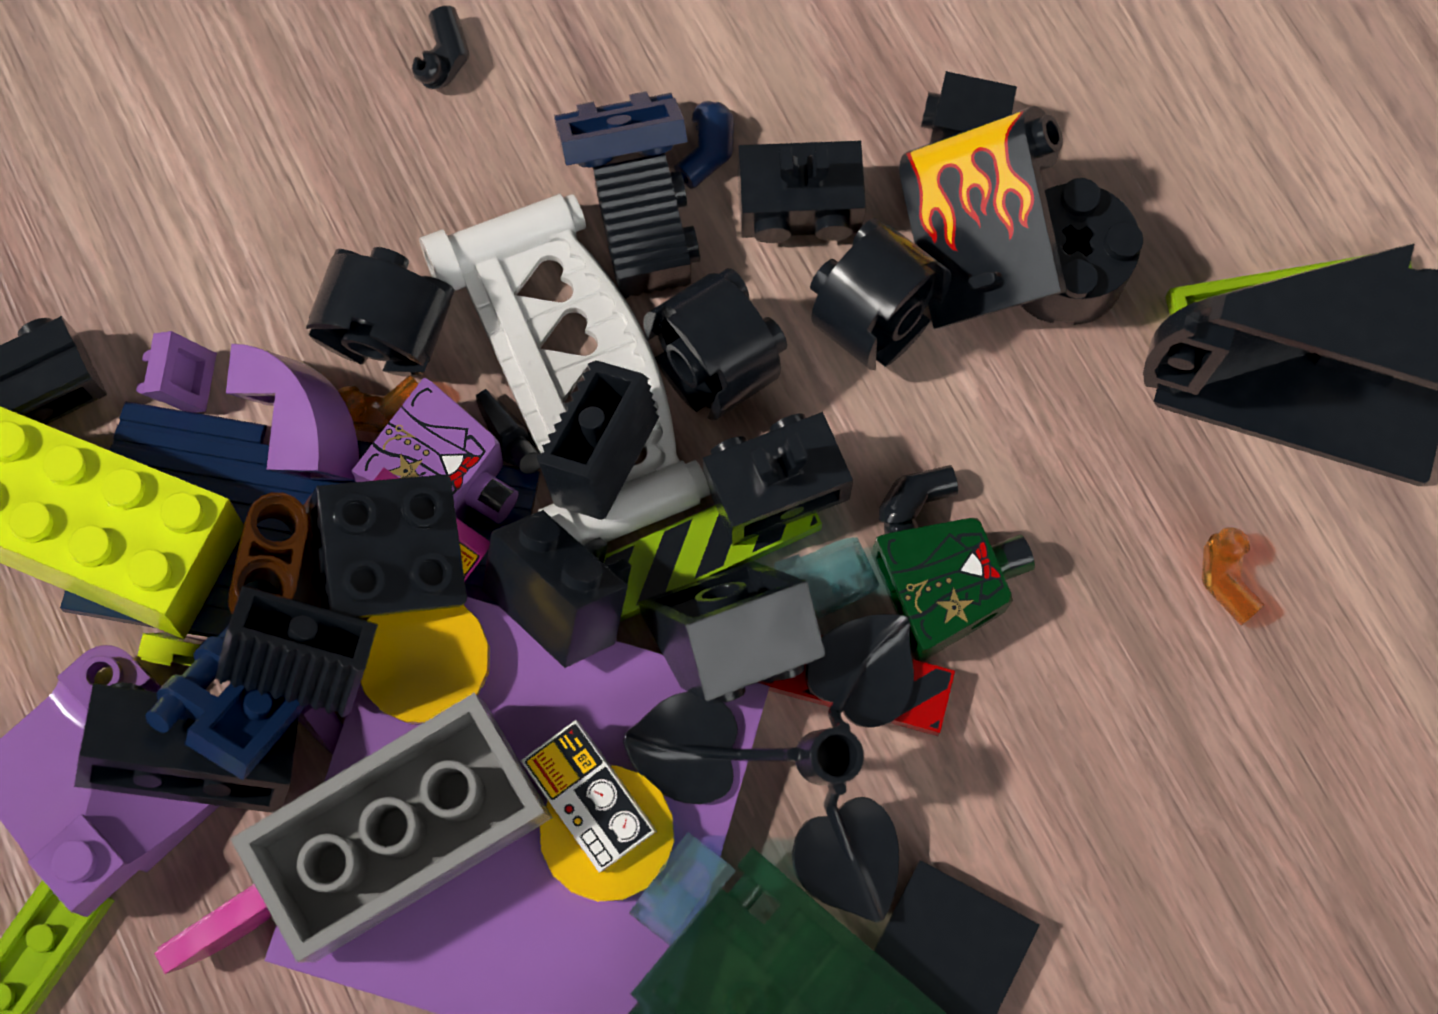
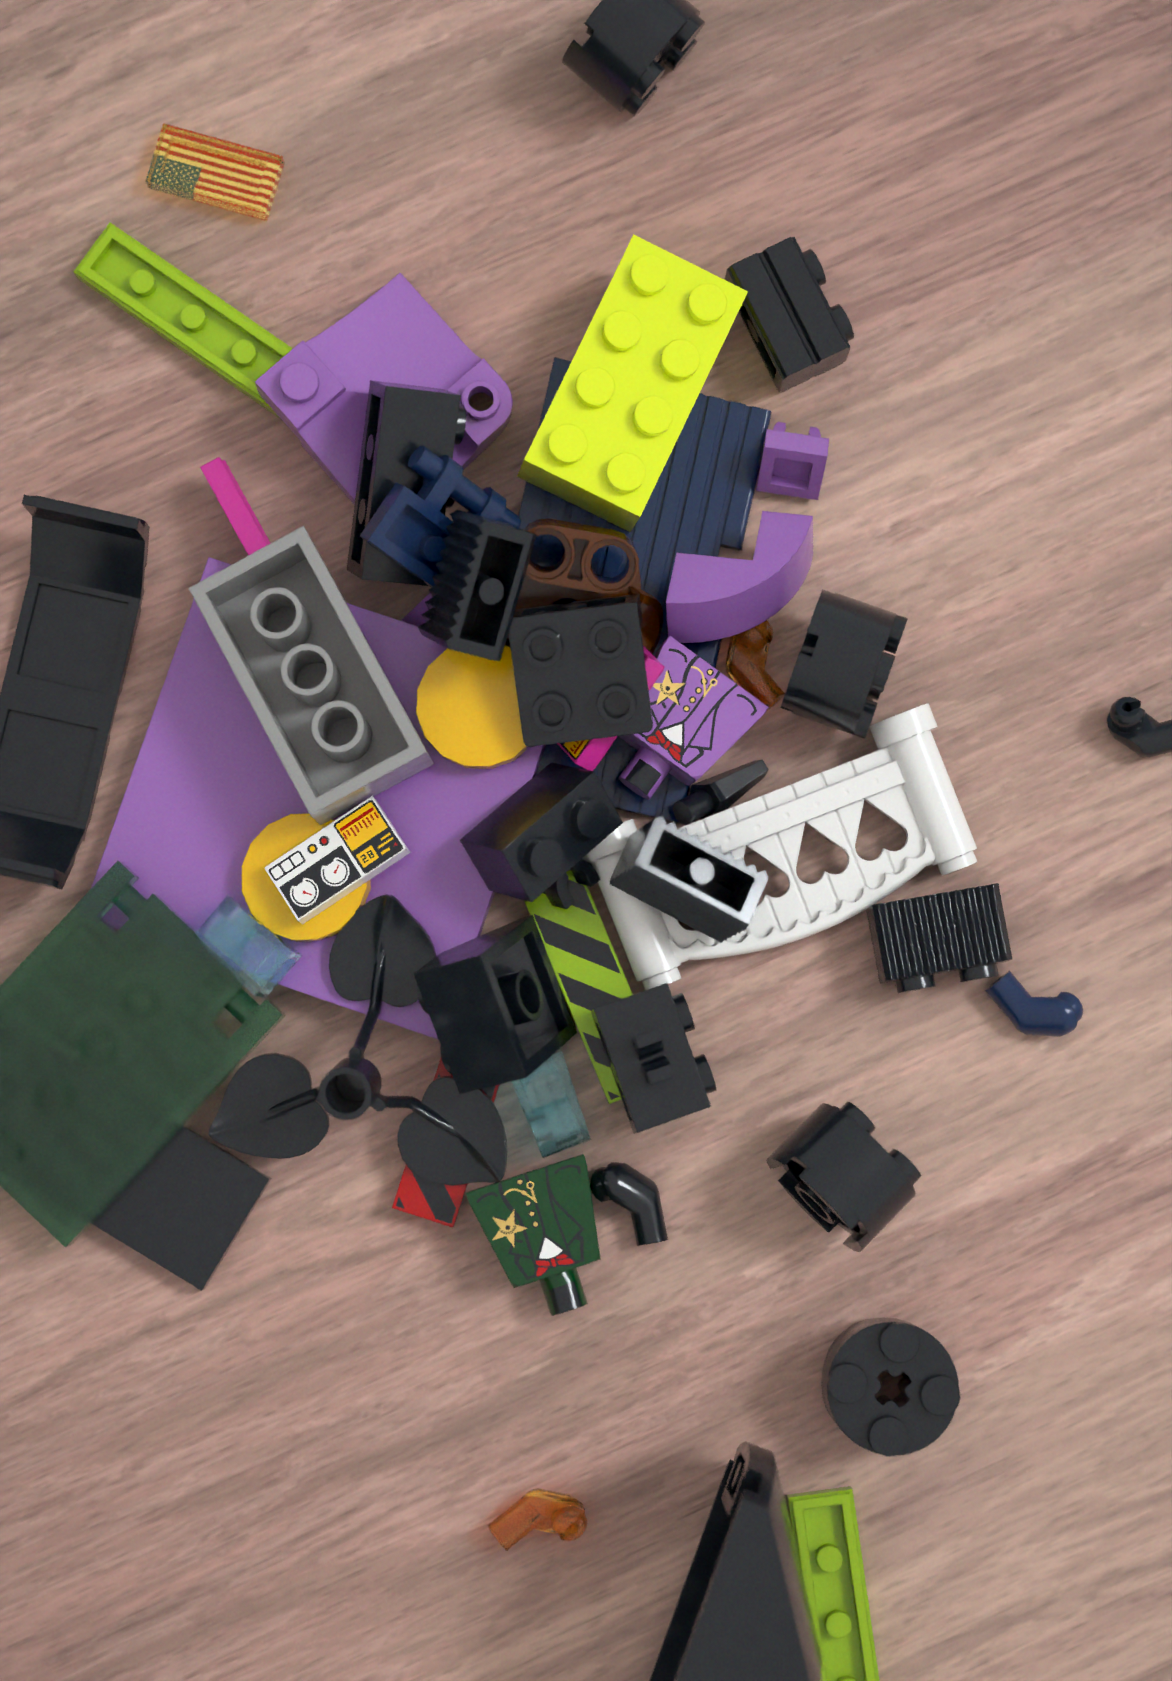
camera: 90 degrees right, 10 degrees up
(167, 648) = (508, 455): neon yellow tile -> none
(638, 125) = (1044, 912): dark blue plate -> none
(716, 343) = (796, 1003): black brick -> none
(801, 190) = (971, 1102): black brick -> none
(965, 104) = (1052, 1288): black brick -> none
(985, 211) = (928, 1290): black door -> none

